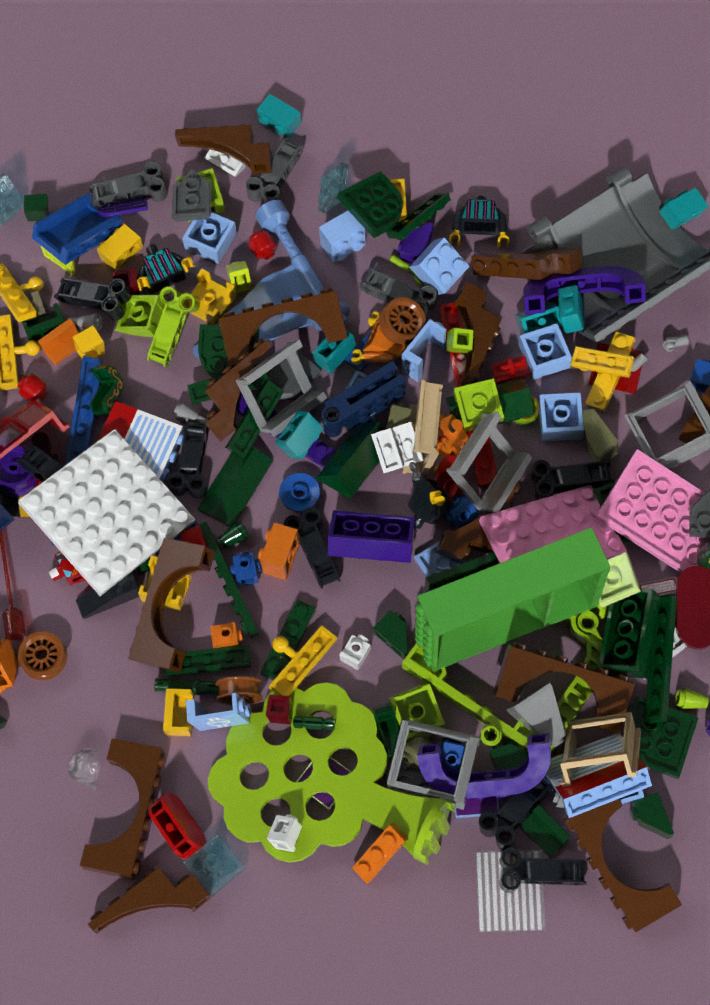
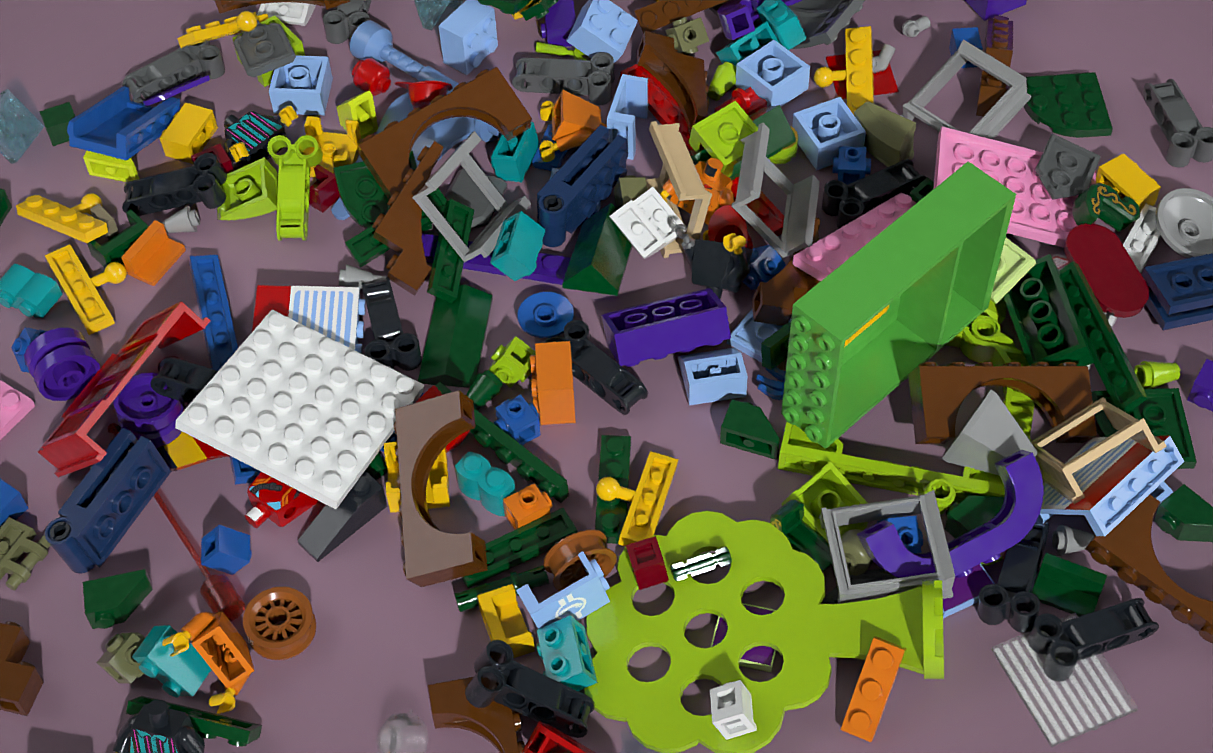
camera: 25 degrees left, 15 degrees down
(27, 592) = (225, 550): none -> blue brick
(32, 387) = (132, 312): red head -> none
(89, 343) = (193, 236): yellow panel -> none
(110, 389) = (241, 280): dark green animal -> none
(164, 170) = (245, 21): none -> yellow plate
(168, 769) = (527, 691): none -> black piece
(190, 331) = (324, 190): none -> dark red panel
(204, 751) = (566, 653): none -> teal brick
(205, 606) = (483, 482): none -> teal brick
(265, 521) = (512, 362): none -> lime brick
(286, 283) = (424, 92): none -> red piece
(355, 658) = (709, 467): white brick -> none
(389, 582) = (713, 375): none -> light blue slope
(393, 327) = (587, 89): dark orange wheel -> none
(459, 340) = (667, 89): lime brick -> none
(500, 291) = (688, 35): none -> olive brick
(509, 339) = (722, 81): none -> lime cone
(563, 451) = (851, 164): none -> blue brick
(602, 361) = (847, 61): yellow tile -> none

